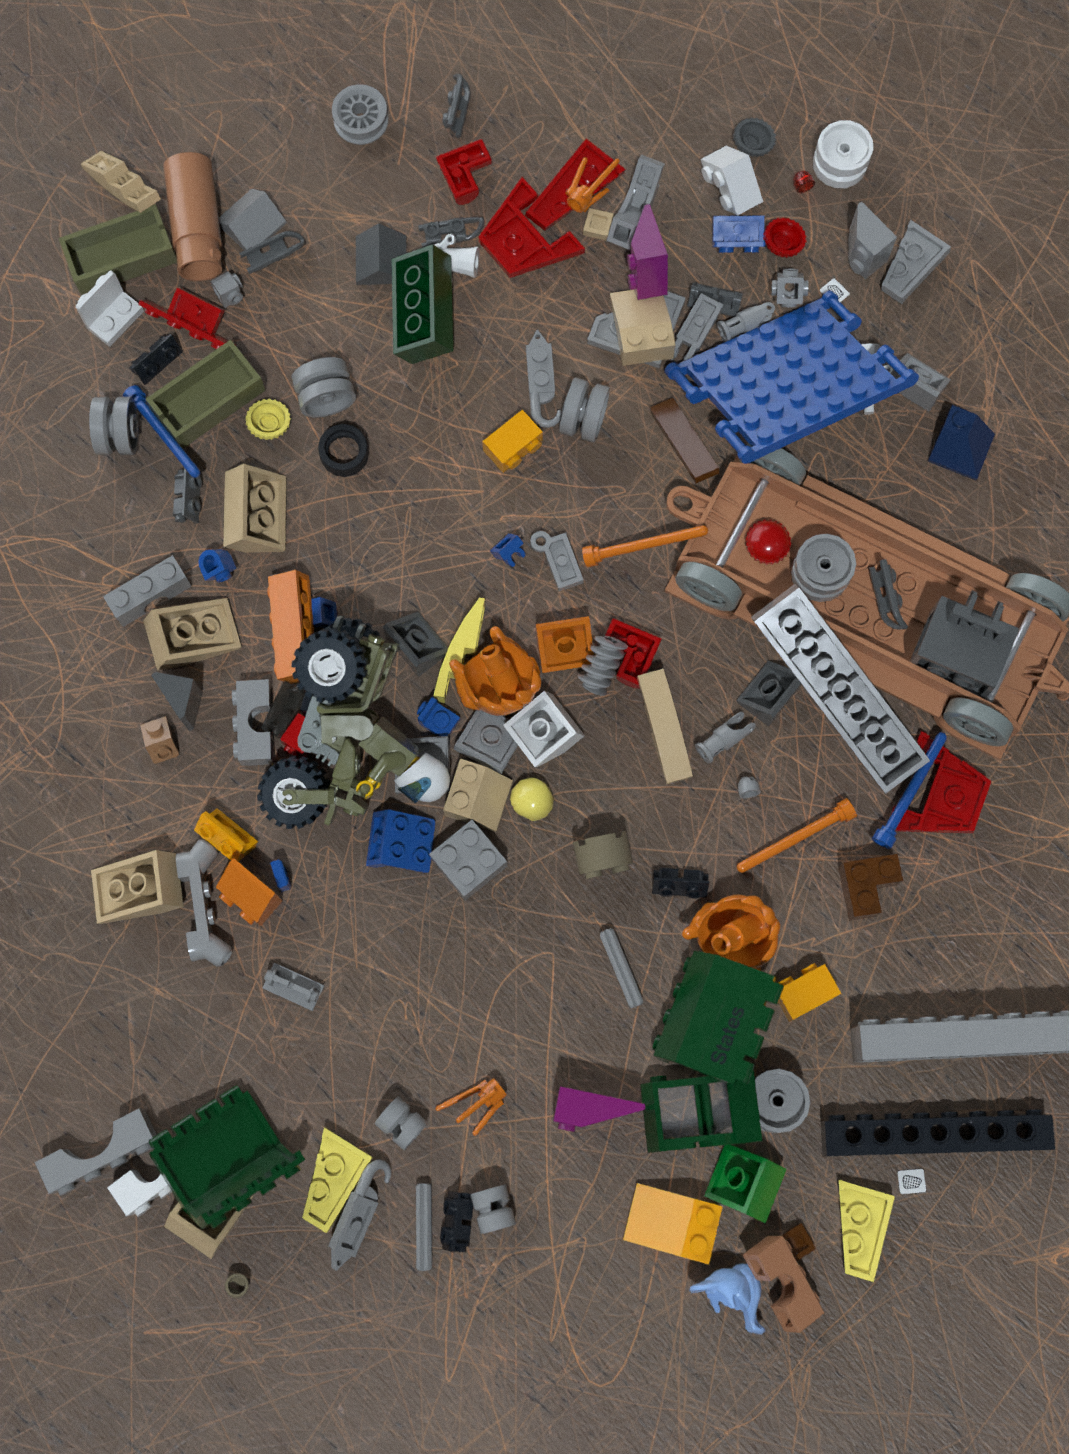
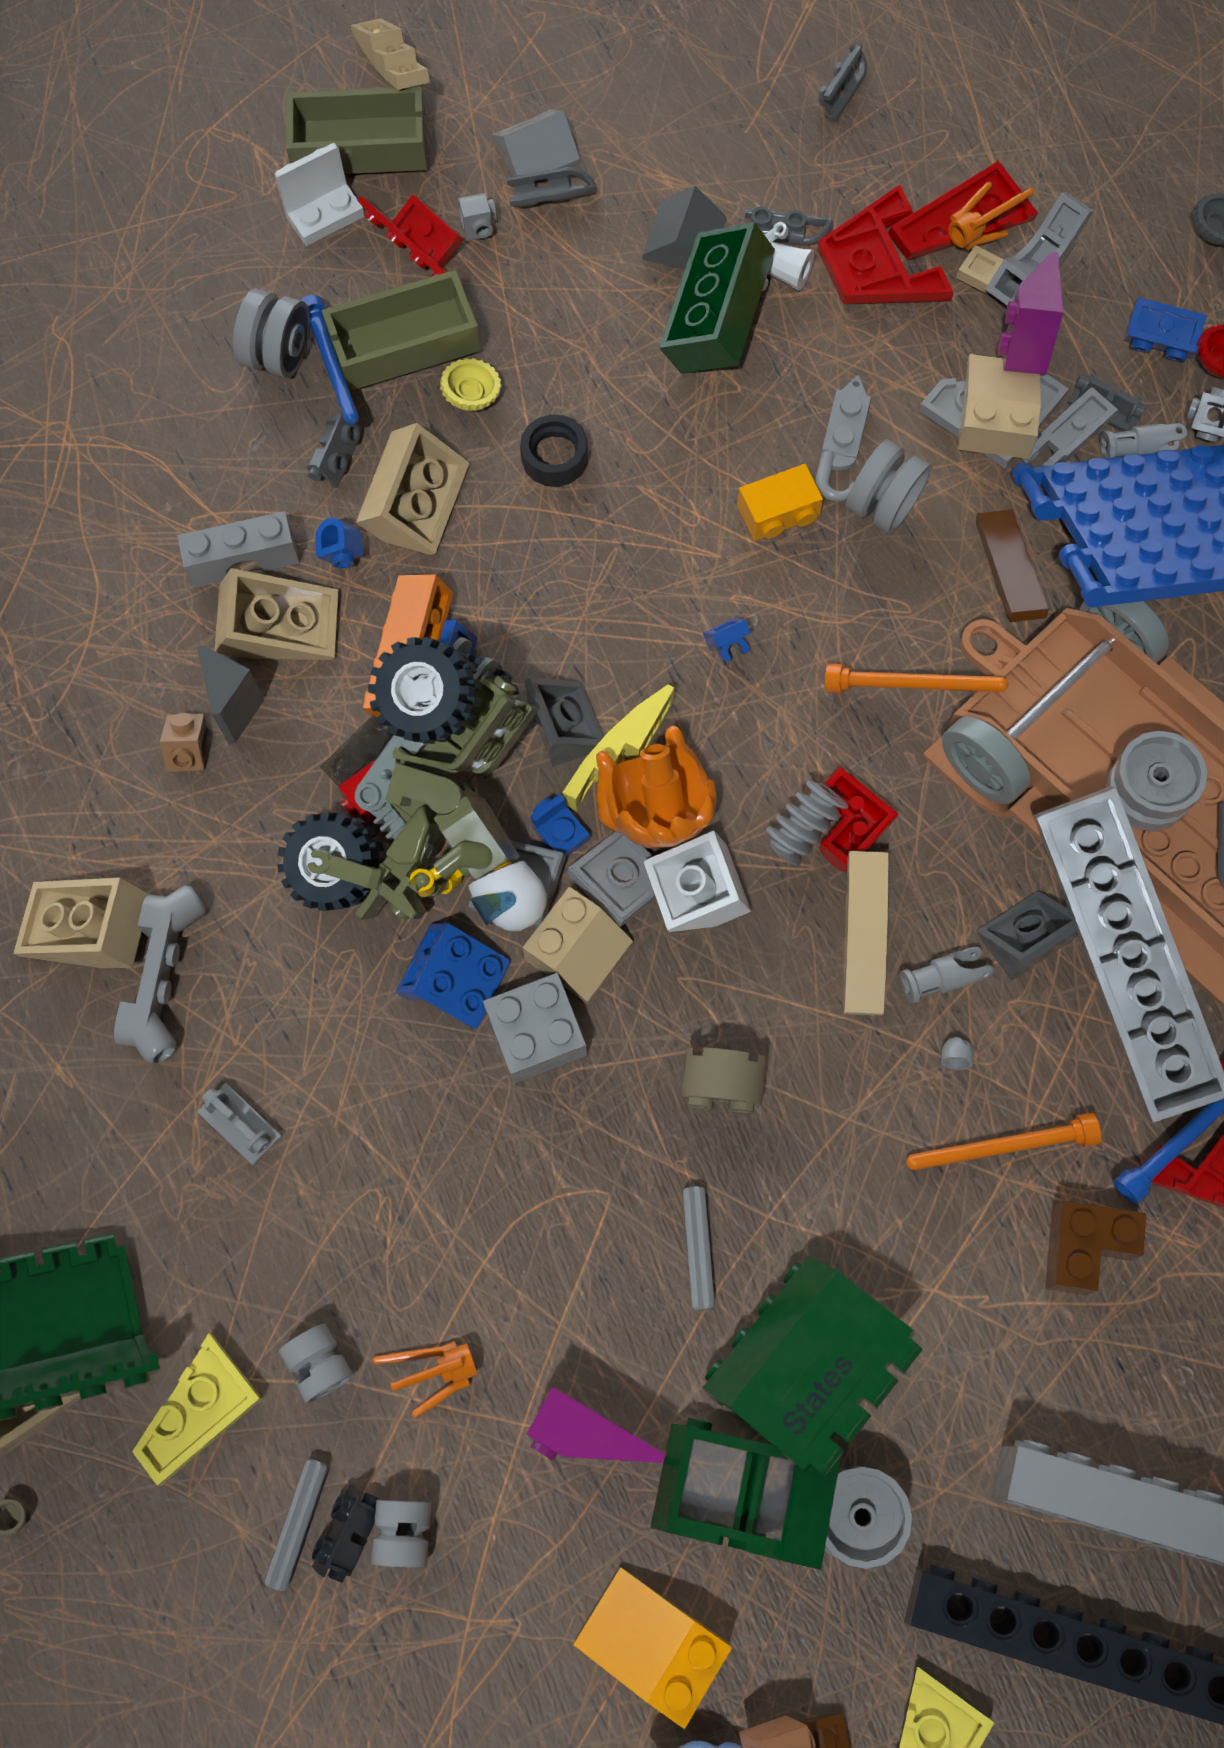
camera: 20 degrees right, 5 degrees down
(159, 357) = (357, 274): black hinge -> none
(193, 215) = (464, 115): nougat piece -> none
(225, 835) = (221, 890): light orange bracket -> none
(248, 893) = (222, 976): orange slope -> none
(252, 699) = (320, 727): light grey arch -> none
(281, 875) = (276, 968): blue tile -> none
(323, 387) = (554, 362): light grey wheel -> none
(356, 1216) = (208, 1476): light grey plate -> none
(358, 100) = (717, 59): light grey wheel -> none
(457, 169) = (820, 152): red brick -> none
(532, 799) = (651, 974): light yellow hair -> none
(560, 559) = (793, 670): light grey hinge -> none
(564, 644) = (762, 779): orange slope -> none
(693, 884) = (836, 1164): black hinge -> none
(735, 177) = (1181, 259): white brick -> none
(737, 930) = (879, 1246): orange piece -> none
(745, 1182) = (778, 1623): green slope -> none
(768, 542) = (1087, 727): red hat -> none
(807, 991) = (954, 1370): light orange brick -> none
(911, 1181) = (1026, 1707): white sticker -> none

